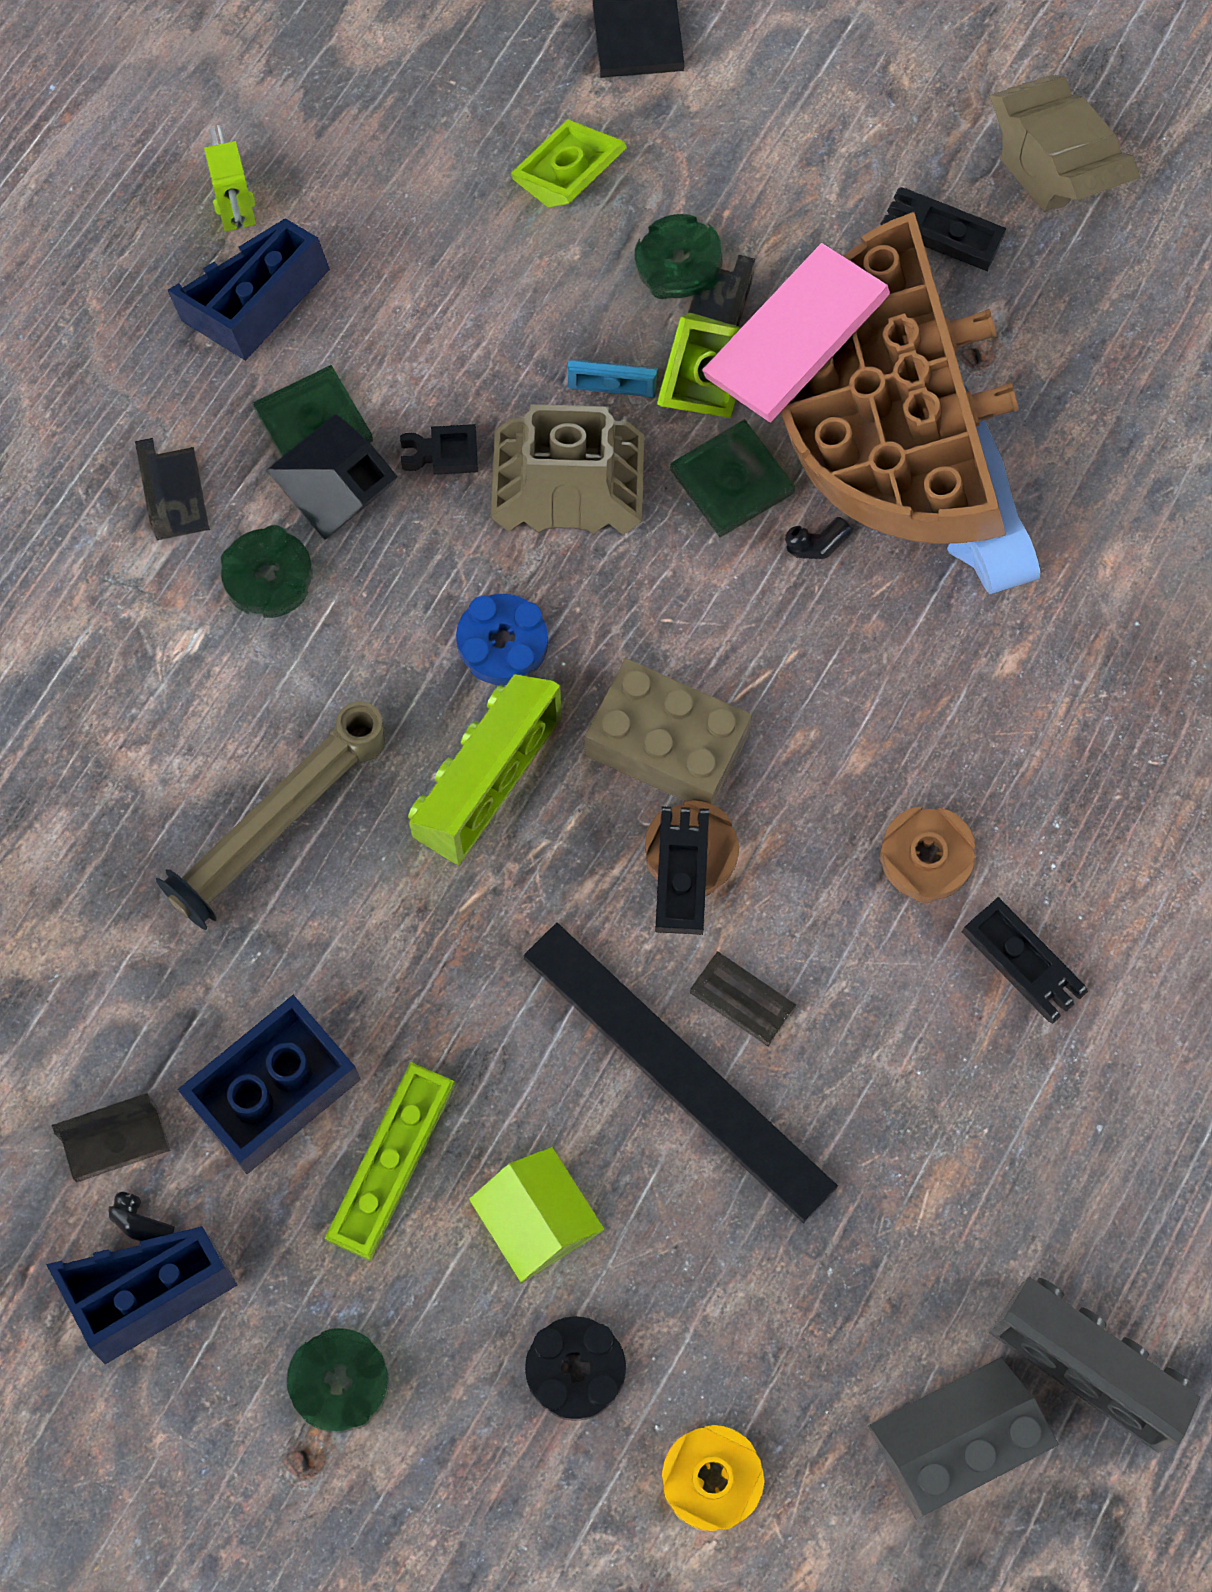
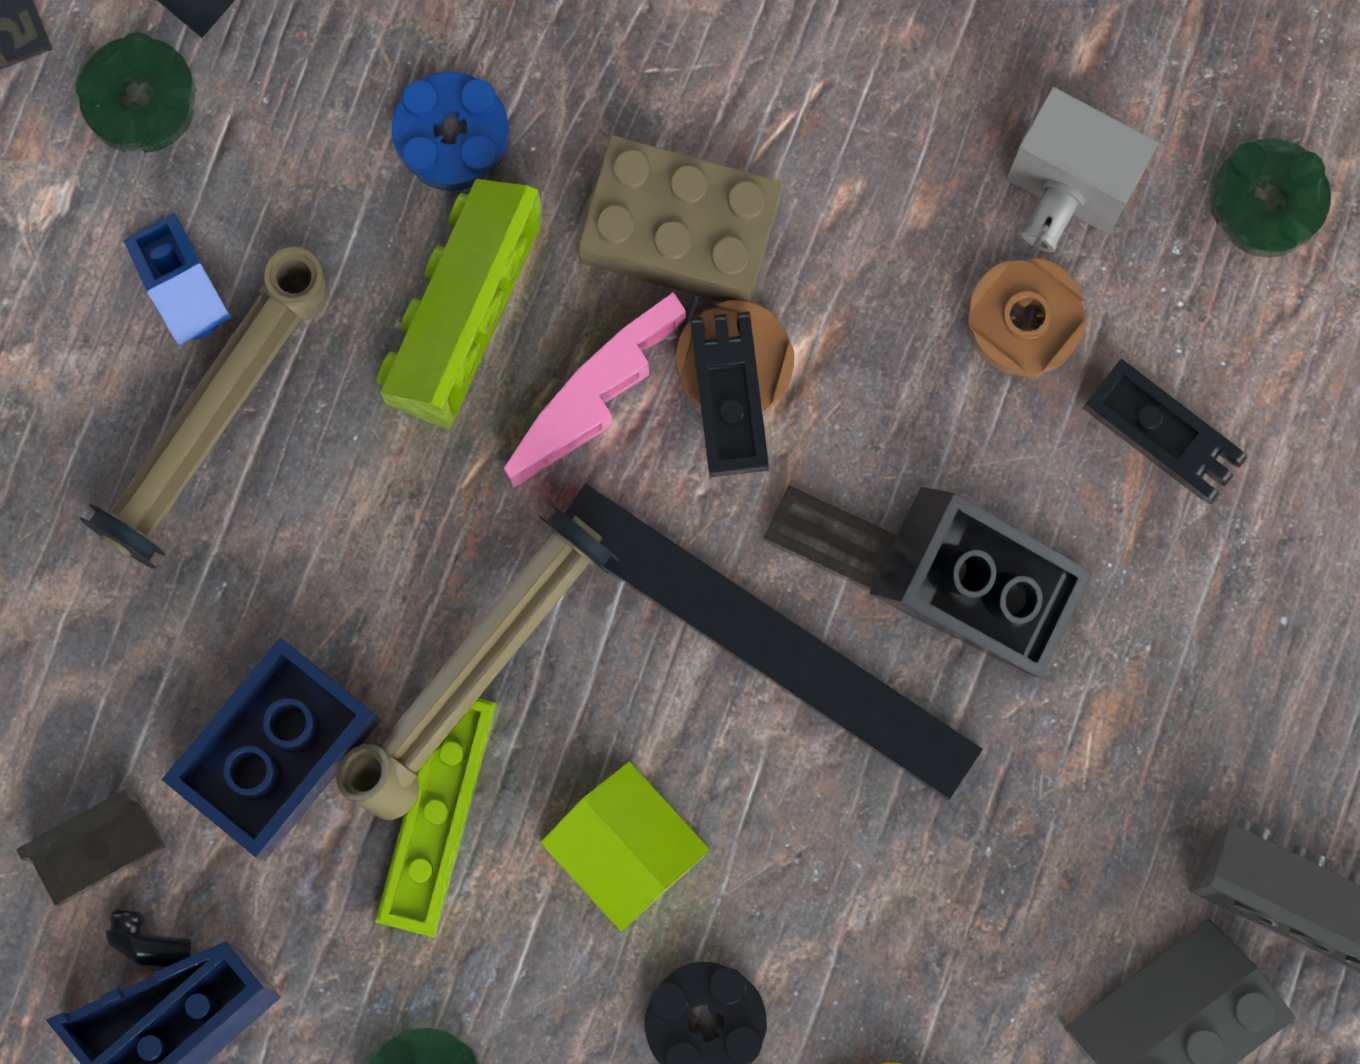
camera: 10 degrees left, 10 degrees up
(269, 714) = (176, 280): none -> blue slope
(354, 1119) = (468, 672): none -> dark tan piece
(563, 862) = (579, 407): none -> bright pink slope
(858, 1051) = (981, 581): none -> black slope
(986, 742) = (1078, 167): none -> light grey brick
(1158, 779) = (1243, 216): none -> clear green plate

